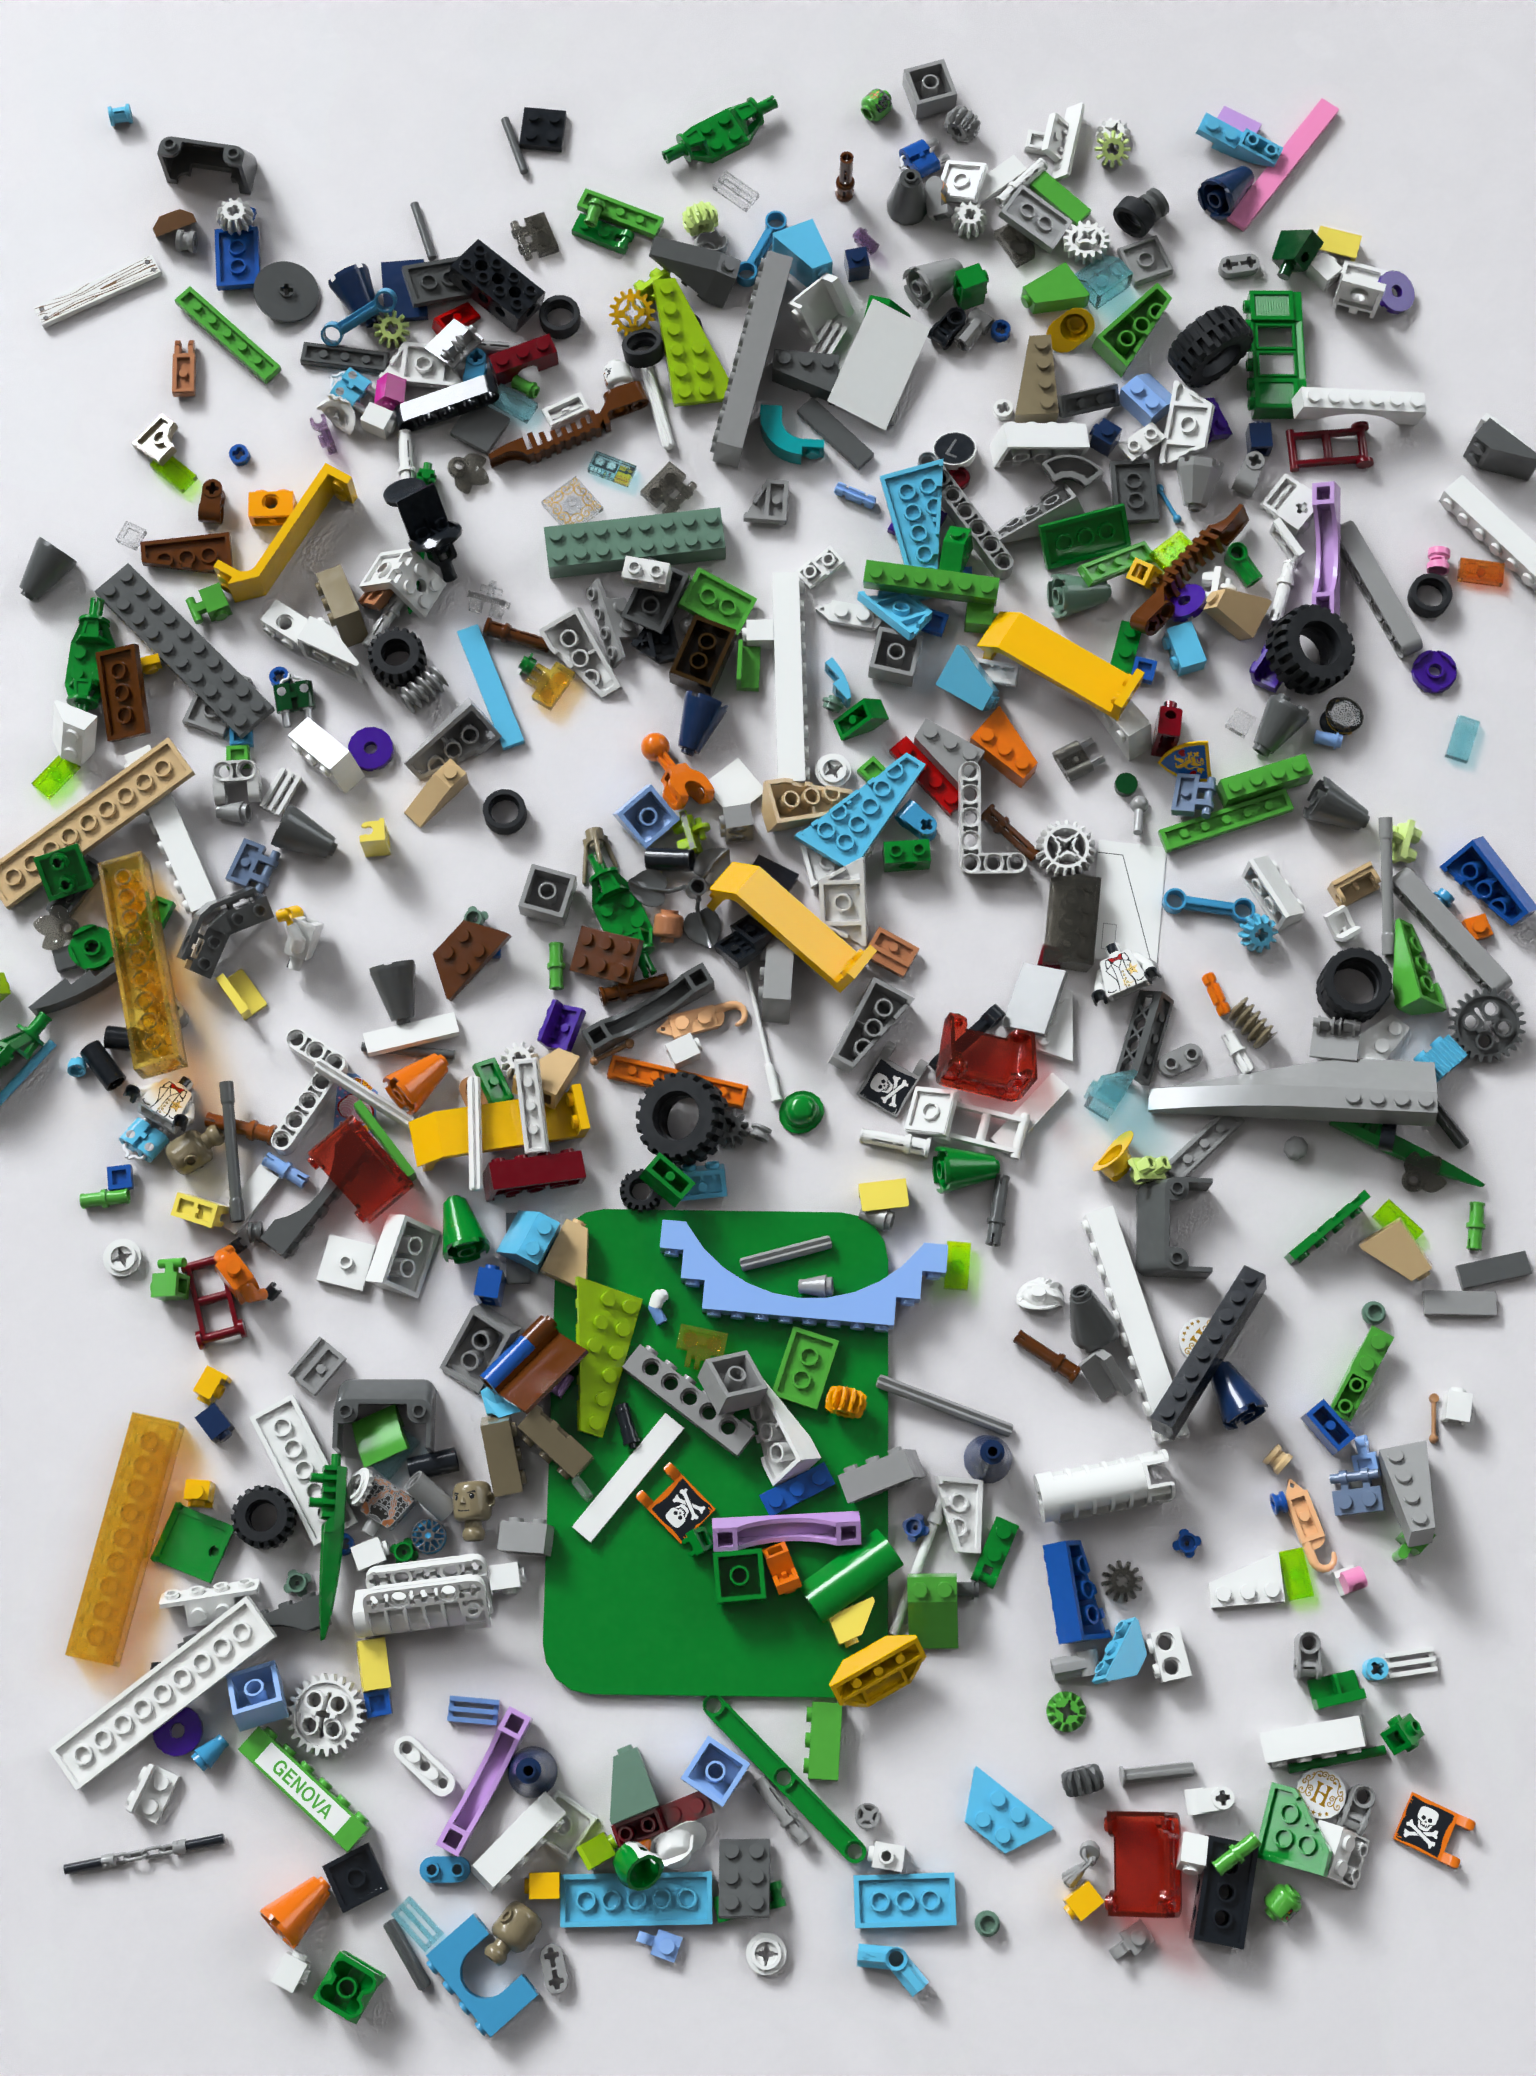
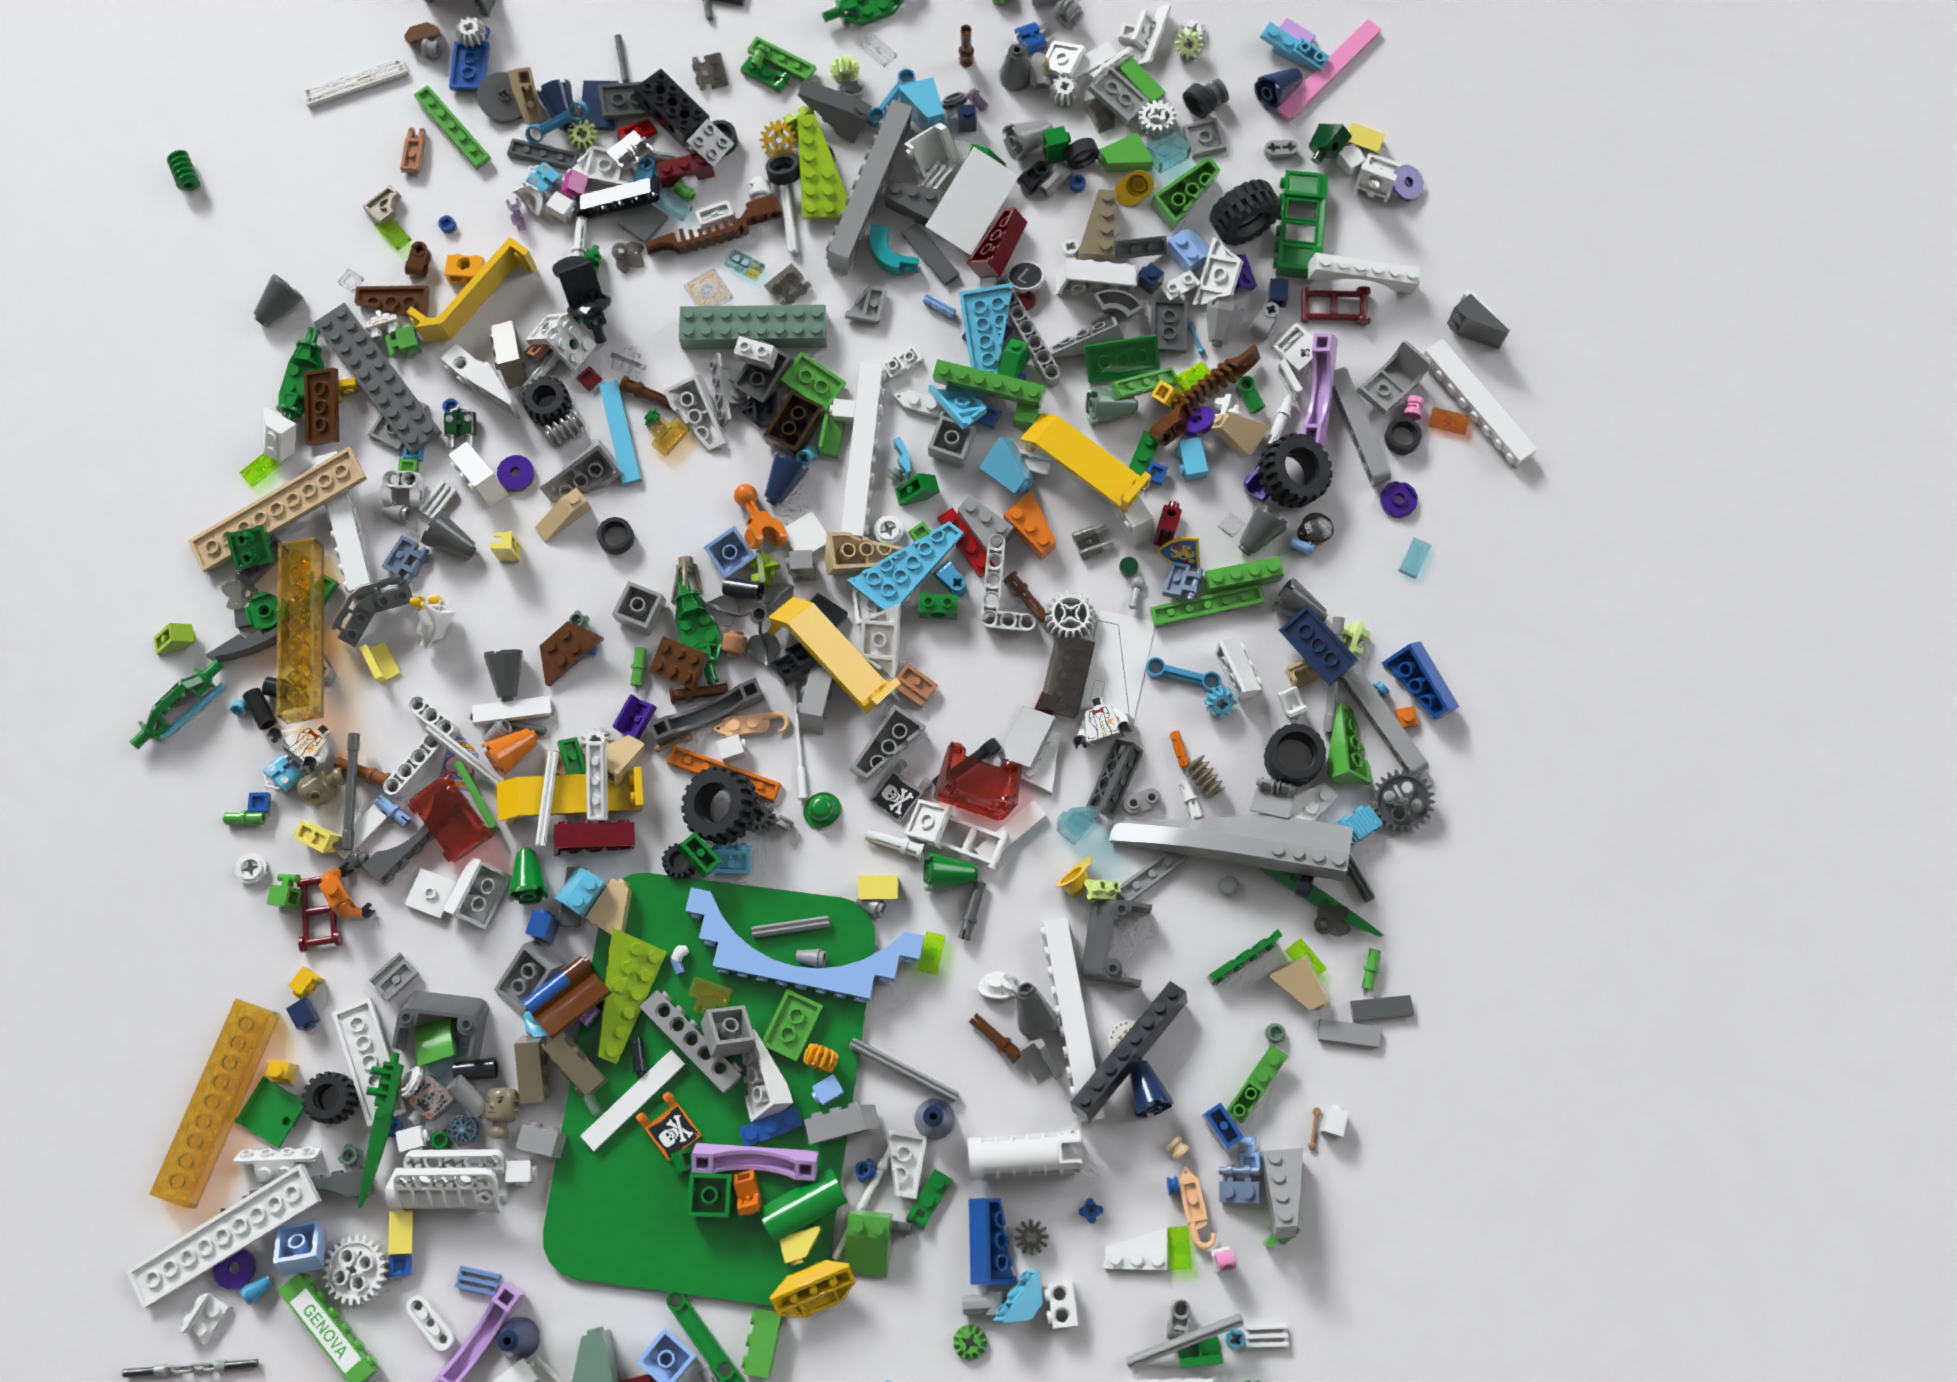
camera: 10 degrees right, 0 degrees up
(180, 584) = (381, 324): none -> white hips
(314, 286) = (525, 94): none -> tan slope
(399, 1059) = (499, 729): none -> light grey cone
(443, 625) = (589, 378): none -> dark red tile
(550, 325) = (709, 143): none -> light grey hinge
(723, 684) = (808, 454): none -> medium azure bush
(839, 243) = (954, 99): none -> dark grey gear
(858, 1439) = (827, 1090): none -> light blue brick
(917, 414) = (998, 244): none -> dark red wedge
(1002, 294) = (1081, 153): none -> black tyre
(1318, 1678) = (1184, 1341): none -> light grey axle
(1366, 853) = (1318, 645): none -> dark blue plate
(1413, 527) = (1395, 378): none -> light grey bracket

